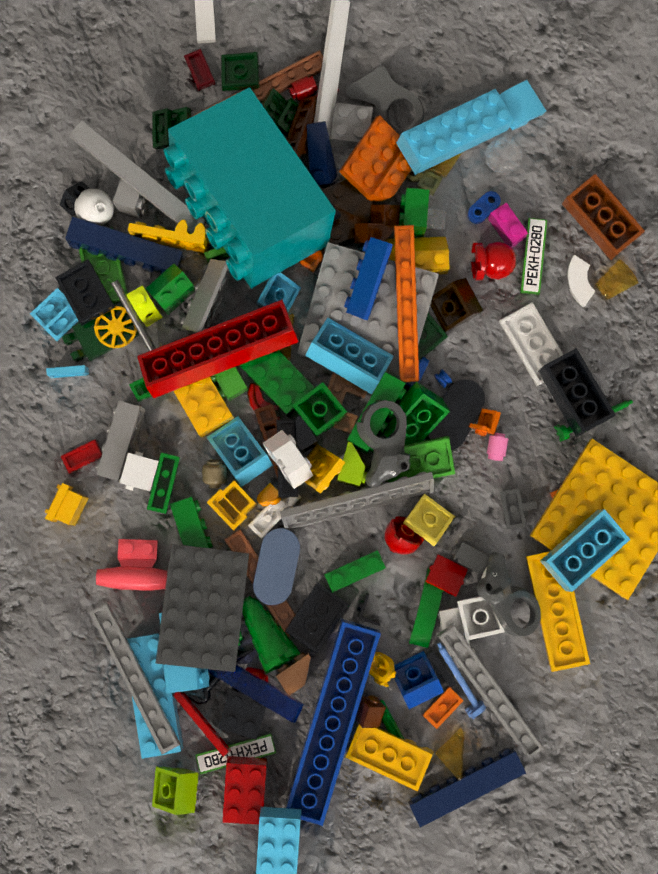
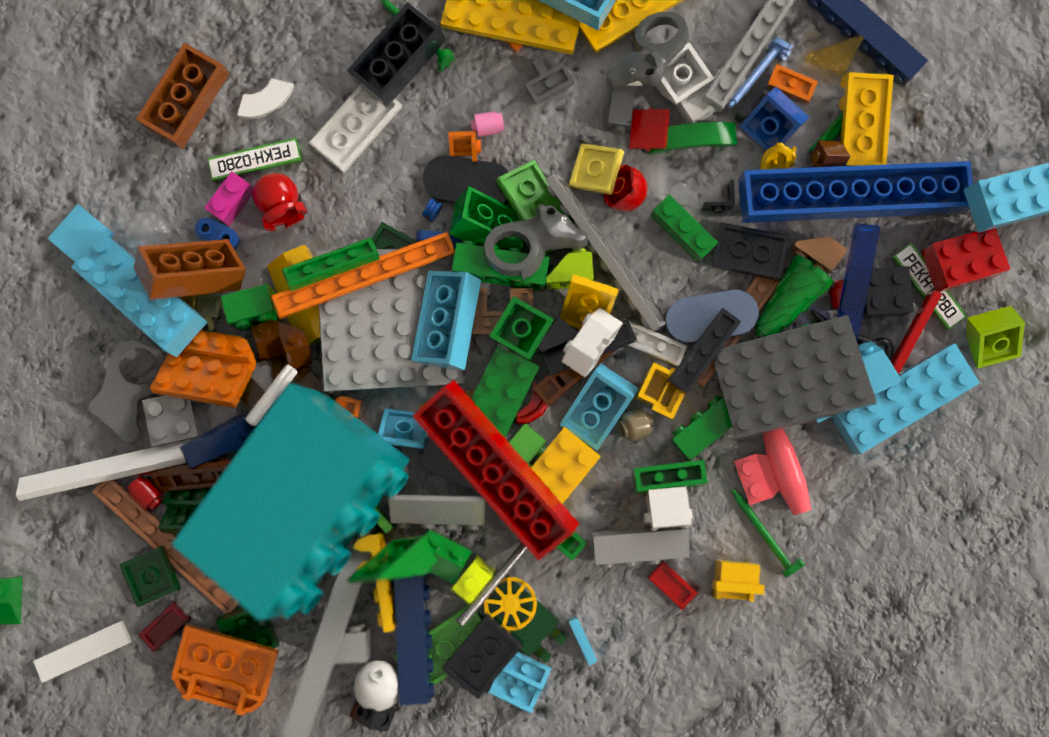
camera: 115 degrees left, 0 degrees up
(59, 551) = (789, 568): none -> green piece
(135, 678) = (898, 423): light grey tile -> none
(150, 100) = (223, 669): none -> orange plate
(176, 248) = (397, 560): none -> green slope
(250, 547) = (704, 351): none -> black tile
(268, 496) = (636, 354): light orange tile -> none
(339, 202) = (271, 395): none -> white axle
(369, 278) = (351, 323): blue slope -> none
(422, 279) = (330, 264): none -> green tile
(455, 304) = (342, 223): dark brown slope -> none
(459, 173) = (188, 268): none -> dark orange brick
(616, 280) = (250, 60): clear yellow piece -> none

